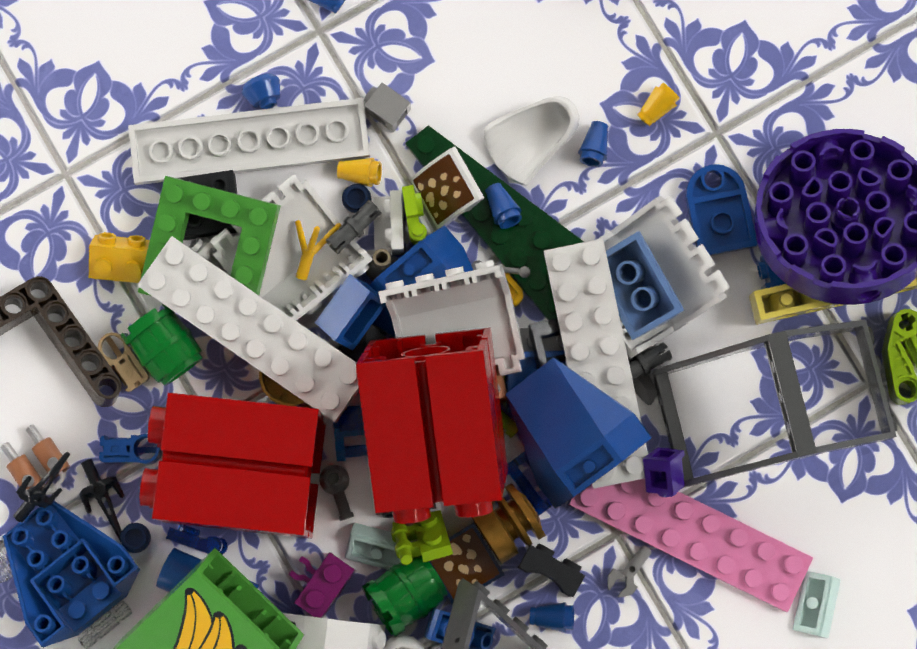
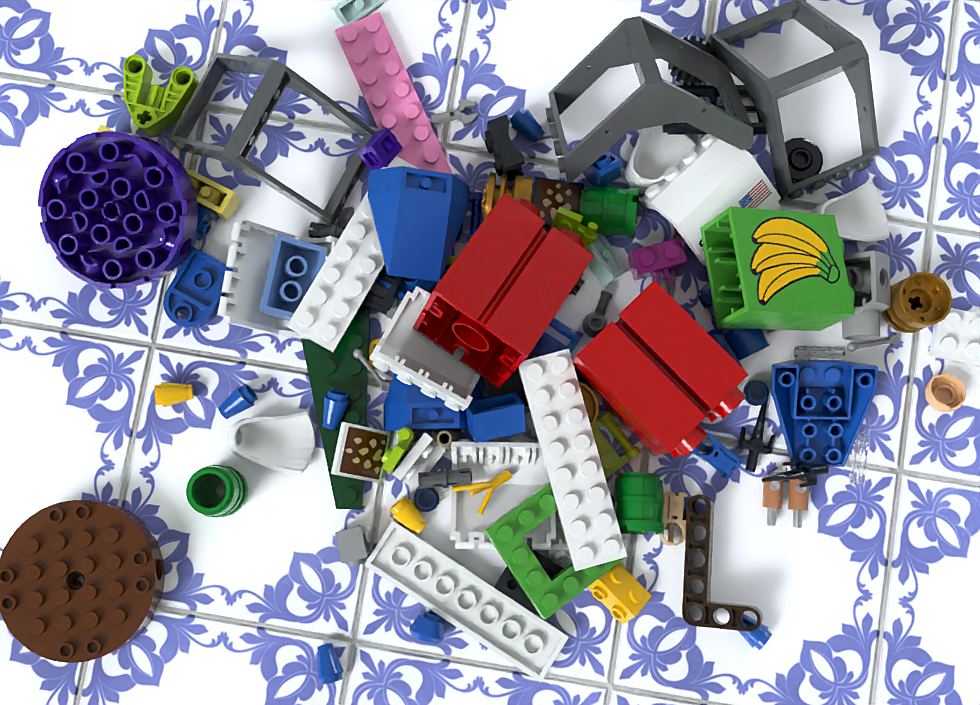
camera: 140 degrees left, 0 degrees up
(229, 366) = (609, 458): none -> lime plate
(542, 37) = (202, 487): none -> green piece

